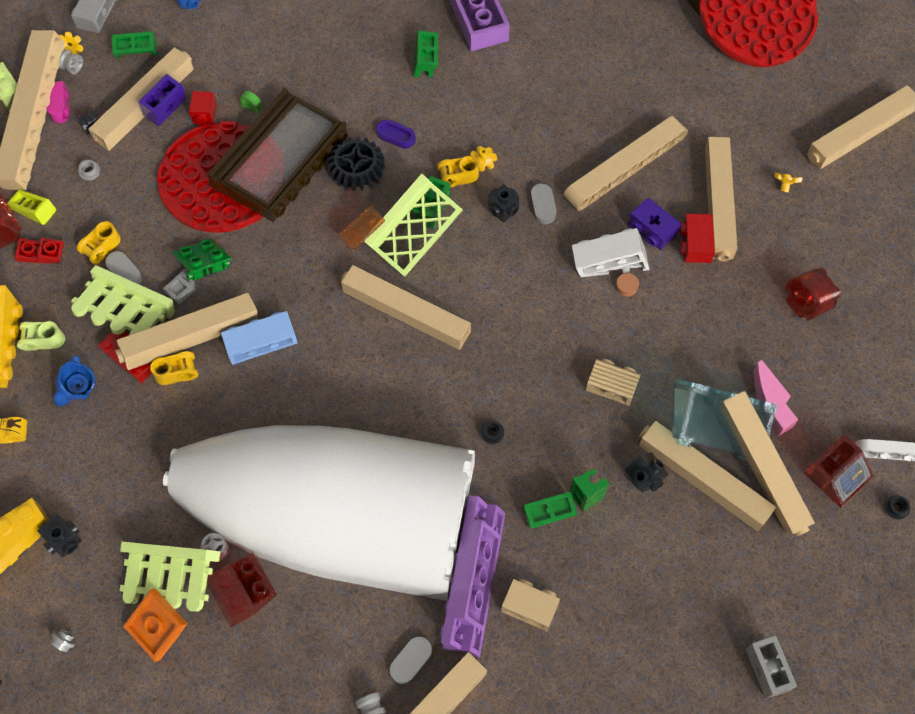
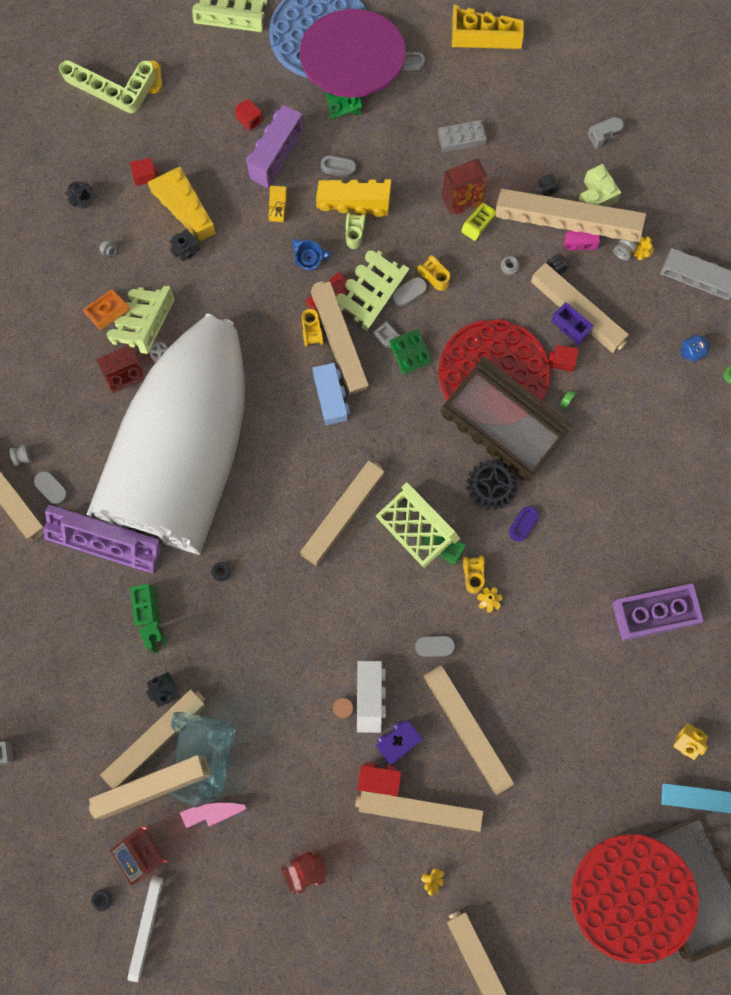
camera: 95 degrees right, 10 degrees up
(39, 251) = (434, 228): red slope -> none
(134, 43) = (636, 302): green hinge -> none
(362, 228) = (418, 482): clear orange bracket -> none
(425, 53) = (608, 559): green hinge -> none
(503, 202) = (435, 615): black brick -> none
(530, 604) = (73, 580): tan brick -> none
(613, 381) = (249, 677): tan brick -> none

